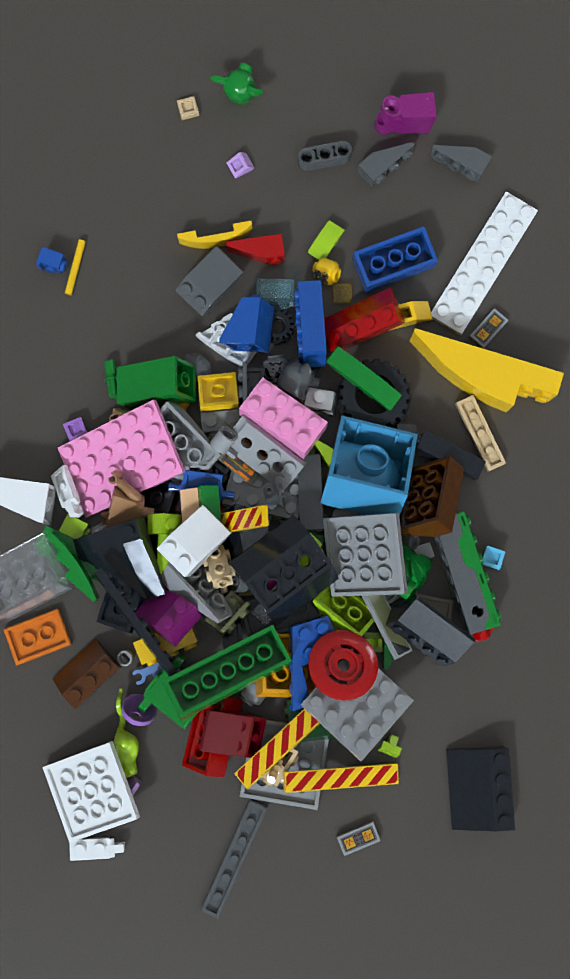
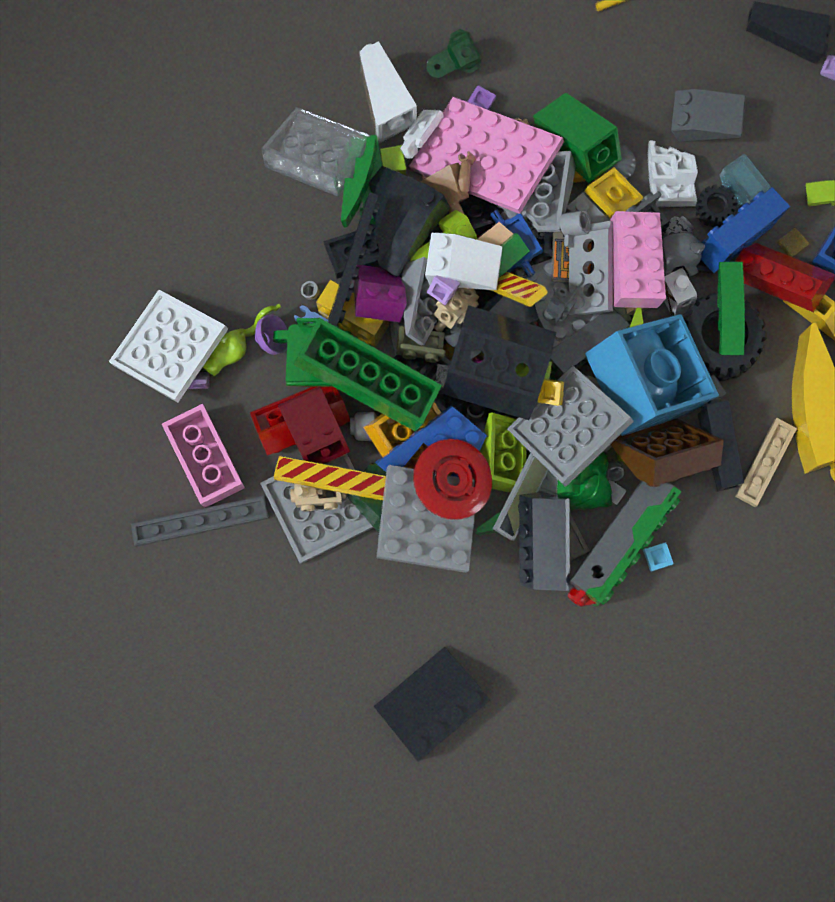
camera: 55 degrees right, 5 degrees down
(31, 420) = (460, 54): none -> dark green piece
(37, 636) = (271, 203): orange tile -> none
(86, 674) = (269, 268): reddish brown slope -> none
(95, 848) = (118, 388): white hinge -> none
(111, 372) = (549, 97): green axle -> none
(189, 173) = (791, 29): none -> black slope
(190, 824) = (203, 456): none -> bright pink brick
(203, 571) = (443, 289): none -> lavender slope
(207, 242) = (755, 101): yellow slope -> none
(249, 326) = (696, 176): blue slope -> none
(261, 249) = (775, 141): red slope -> none
(326, 271) = (802, 212): yellow head -> none
(333, 549) = (551, 392): none -> yellow plate
(340, 777) = (346, 561): tile -> none
(358, 838) = (301, 622): tile -> none
(375, 640) = (494, 504): lime tile -> none
(390, 747) = (407, 589): lime tile -> none

